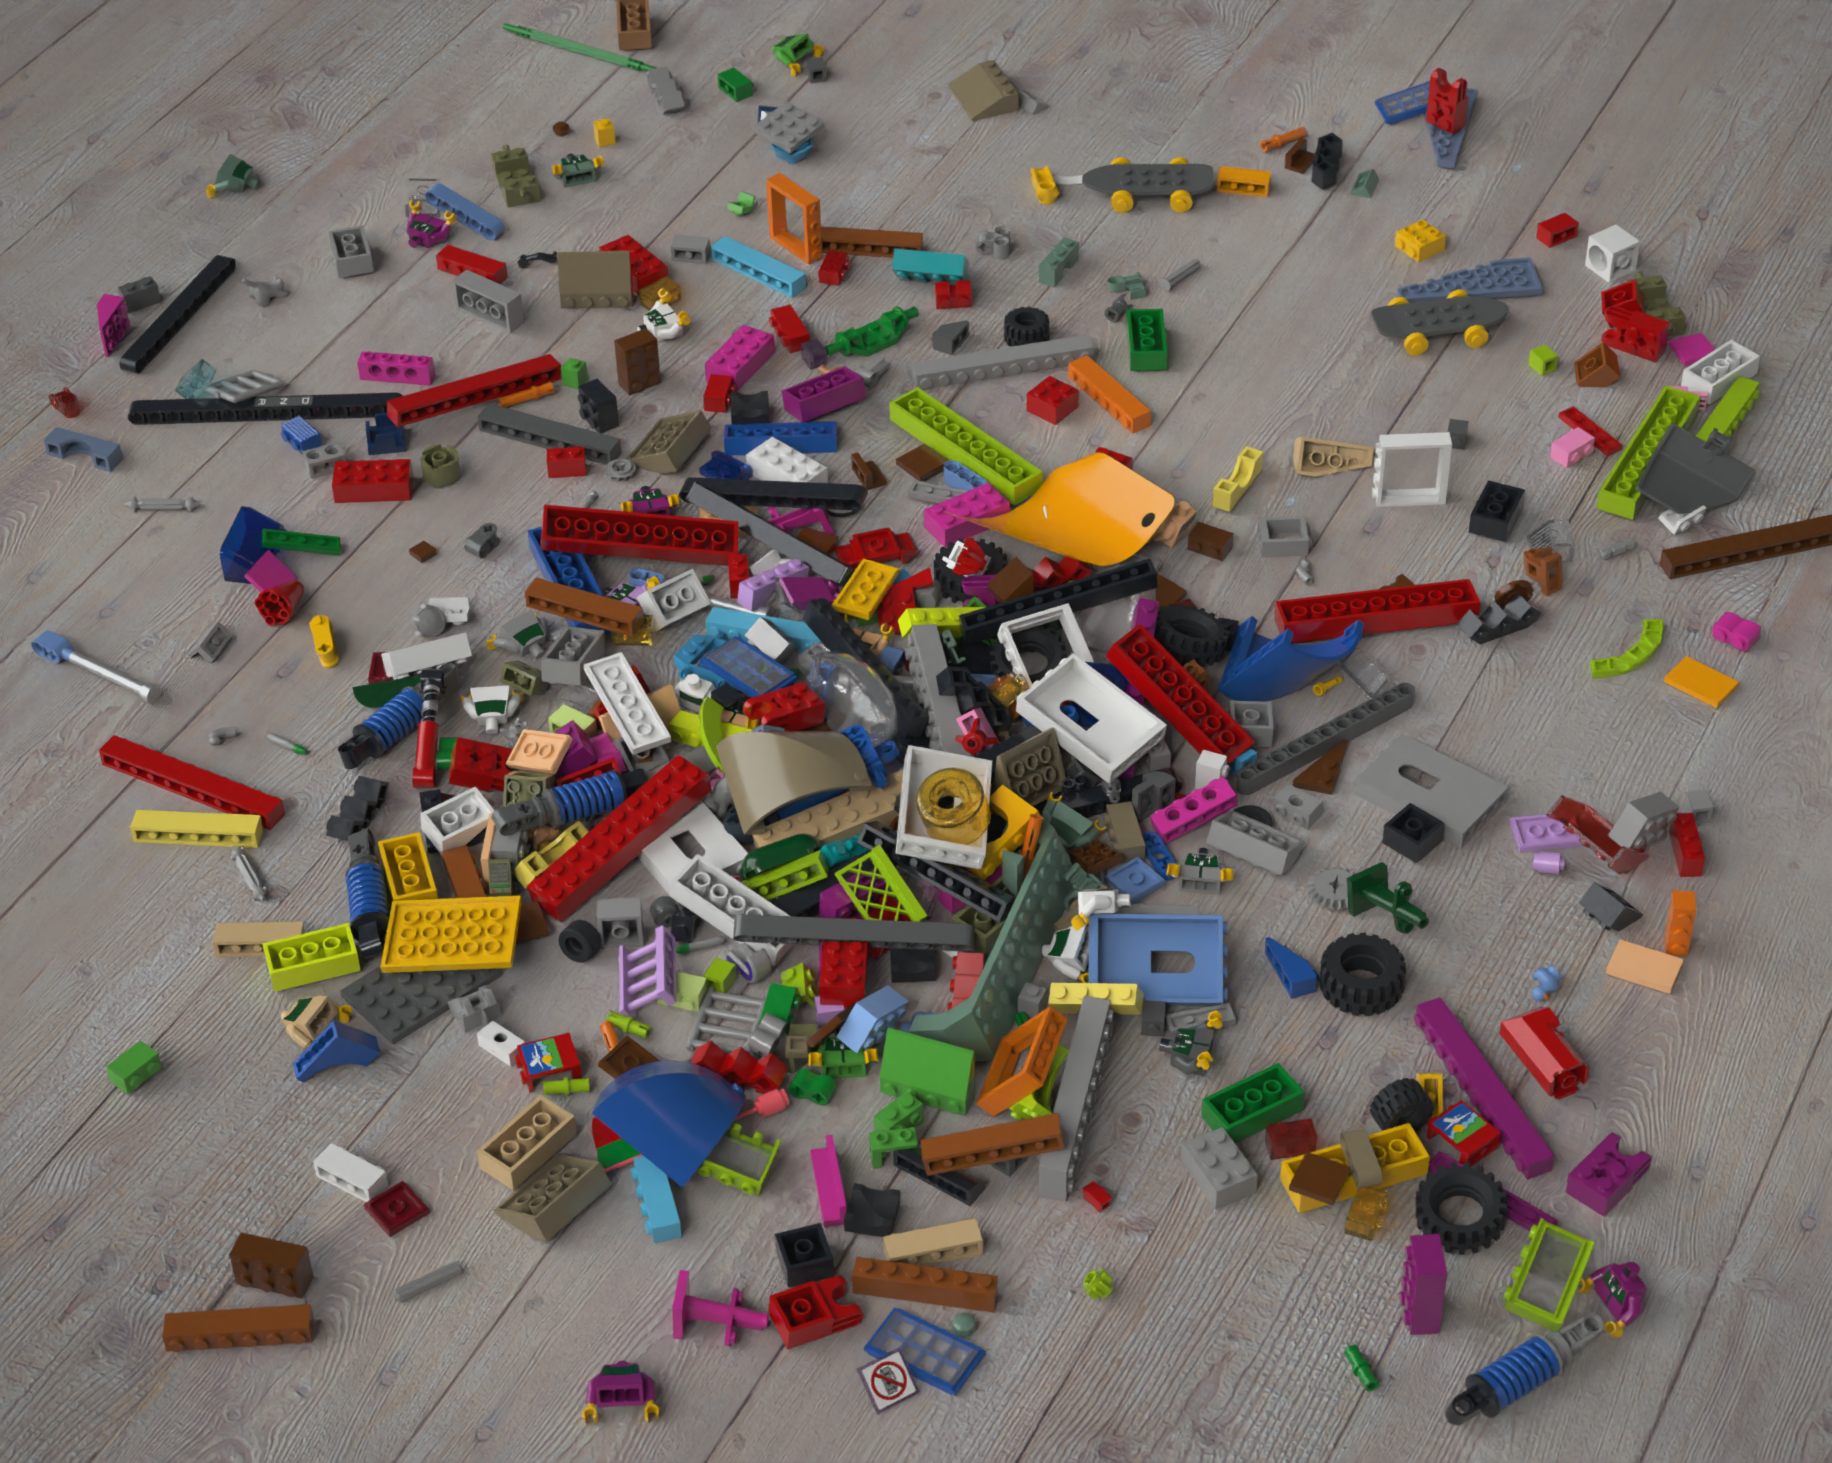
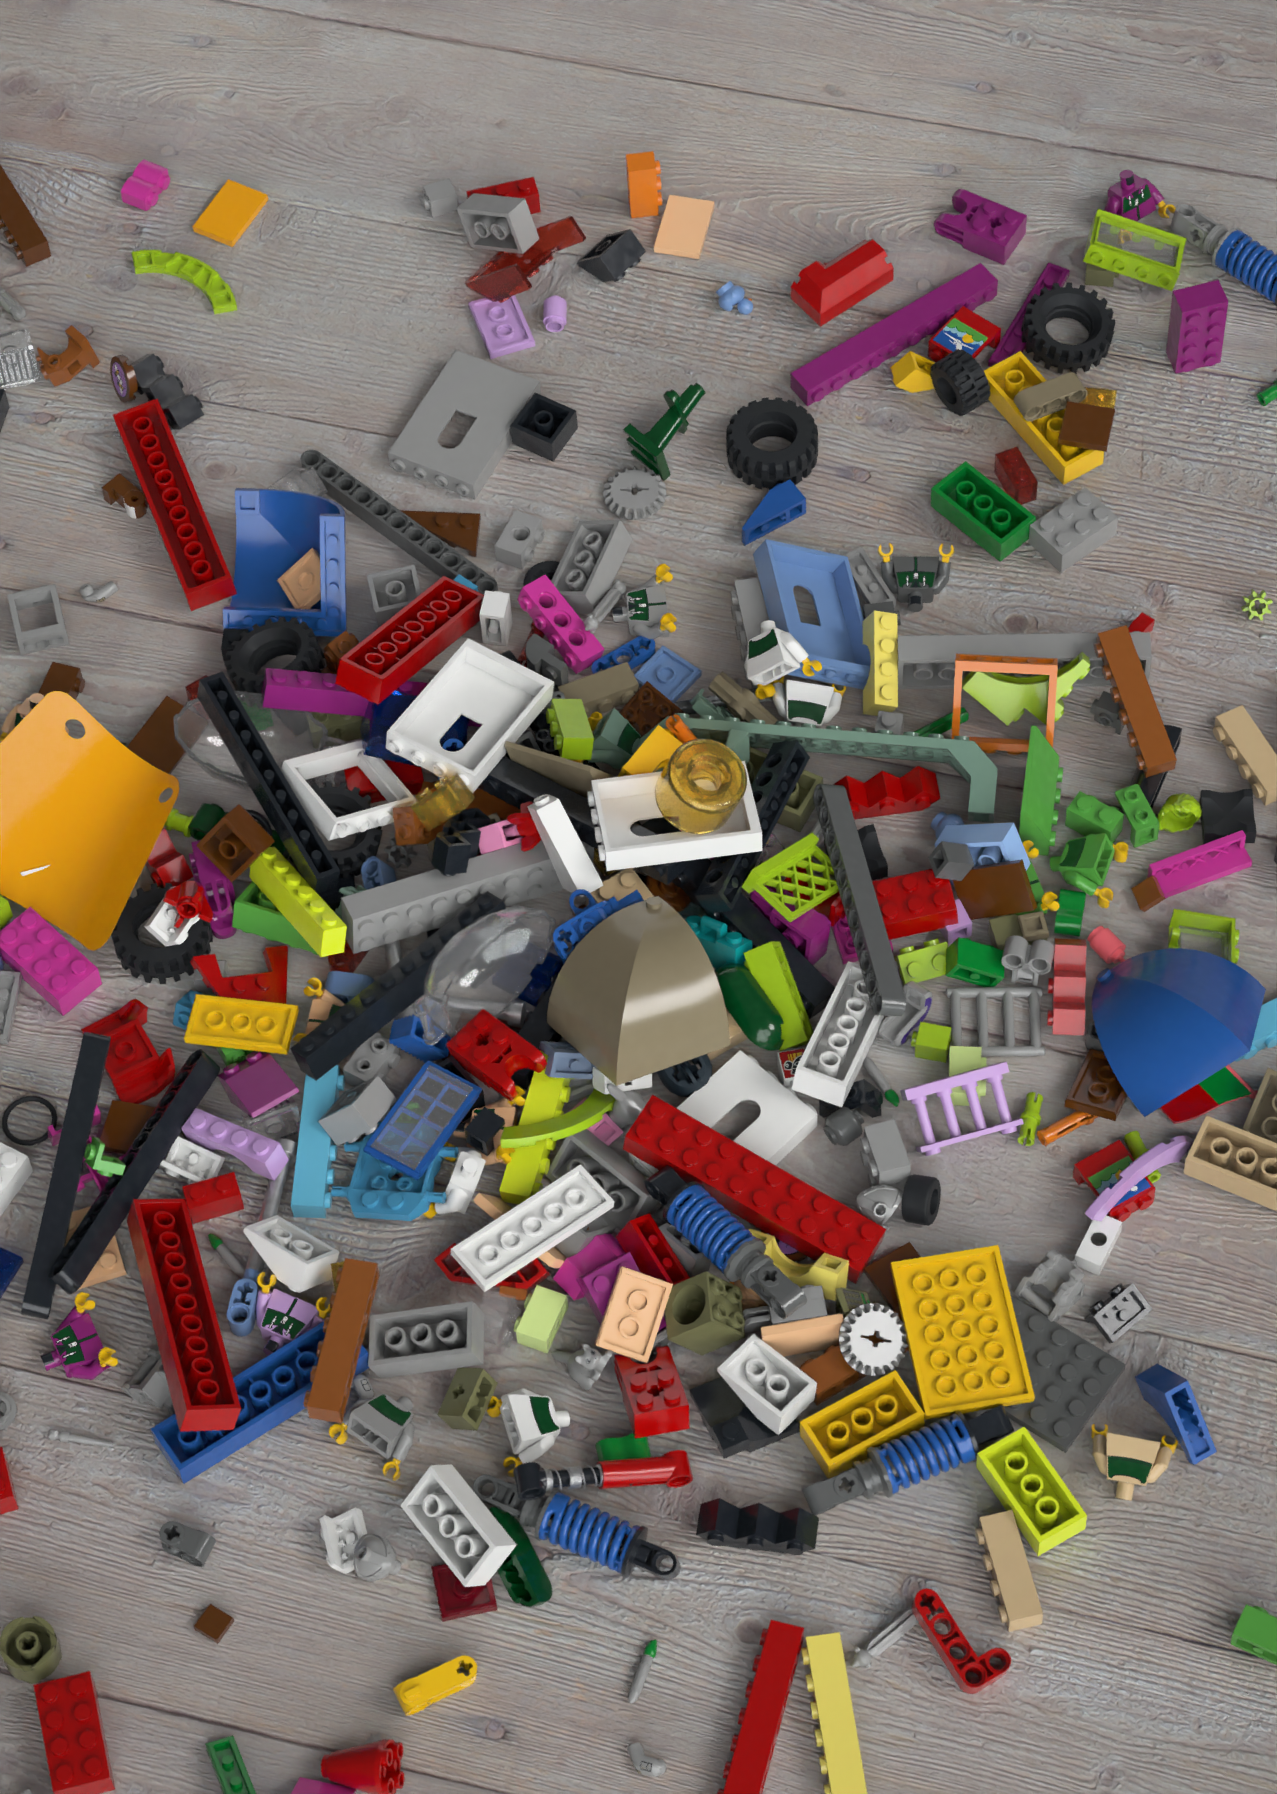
camera: 100 degrees left, 15 degrees up
(215, 893) = (956, 1639): none -> red beam
(436, 1042) = (1119, 1311): none -> bracket
(468, 866) = (860, 1351): none -> gear
(541, 1062) = (1136, 1171): none -> lavender tile
(583, 909) = (871, 1202): none -> light grey helmet
(772, 507) = (103, 1164): none -> bright green bracket
(814, 1142) = (1148, 893): none -> dark orange tile
(853, 1100) = (1087, 862): none -> bright green torso
(859, 982) = (951, 861): none -> dark grey brick
(886, 1172) = (1179, 813): none -> lime hair
(952, 736) = (563, 845): none -> white slope
(1073, 787) = (570, 729): none -> lime brick
(1206, 840) = (604, 606): none -> light grey wheel

